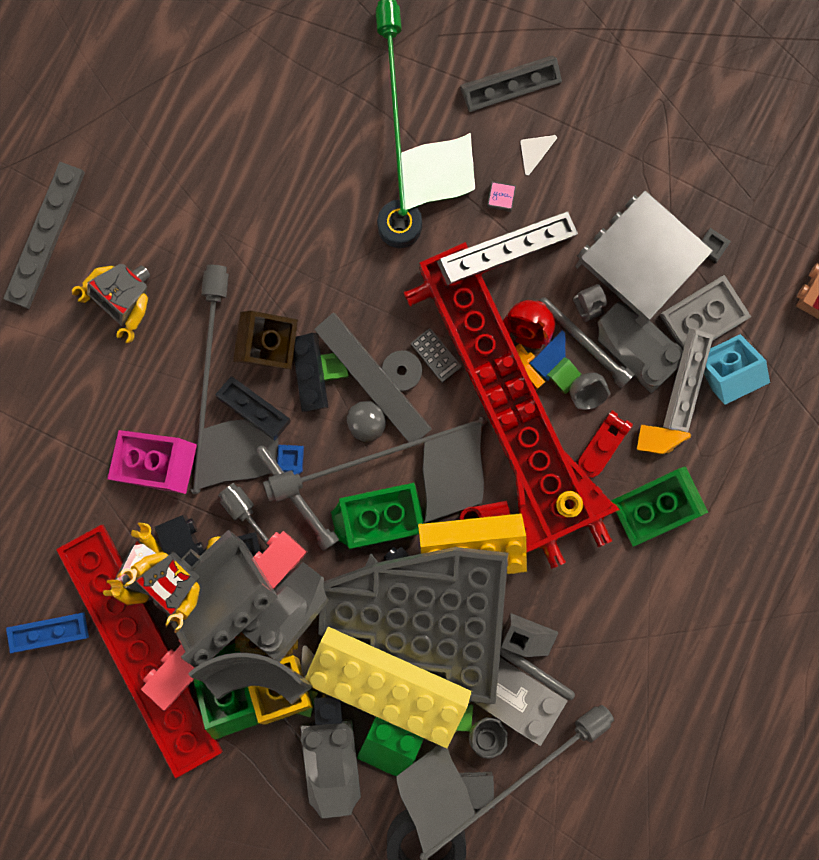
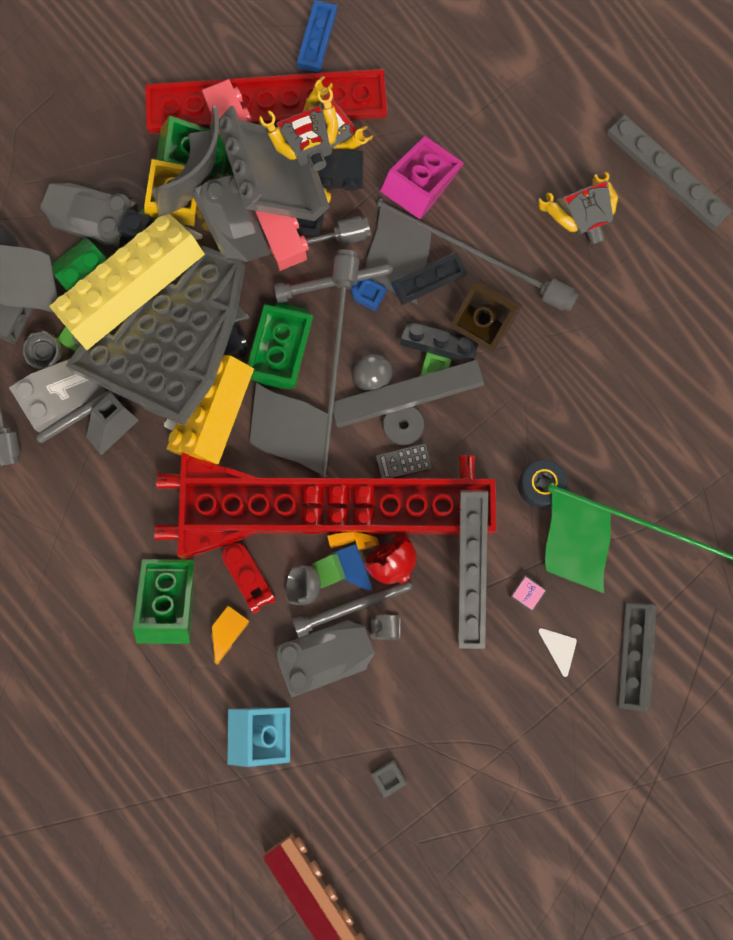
camera: 115 degrees right, 5 degrees down
(488, 510) = (237, 440): red piece -> none
(578, 504) = (198, 504): yellow plate -> none
(644, 255) = (406, 699): panel -> none
(688, 380) = (268, 685): light grey tile -> none
(710, 310) = (323, 736): light grey tile -> none

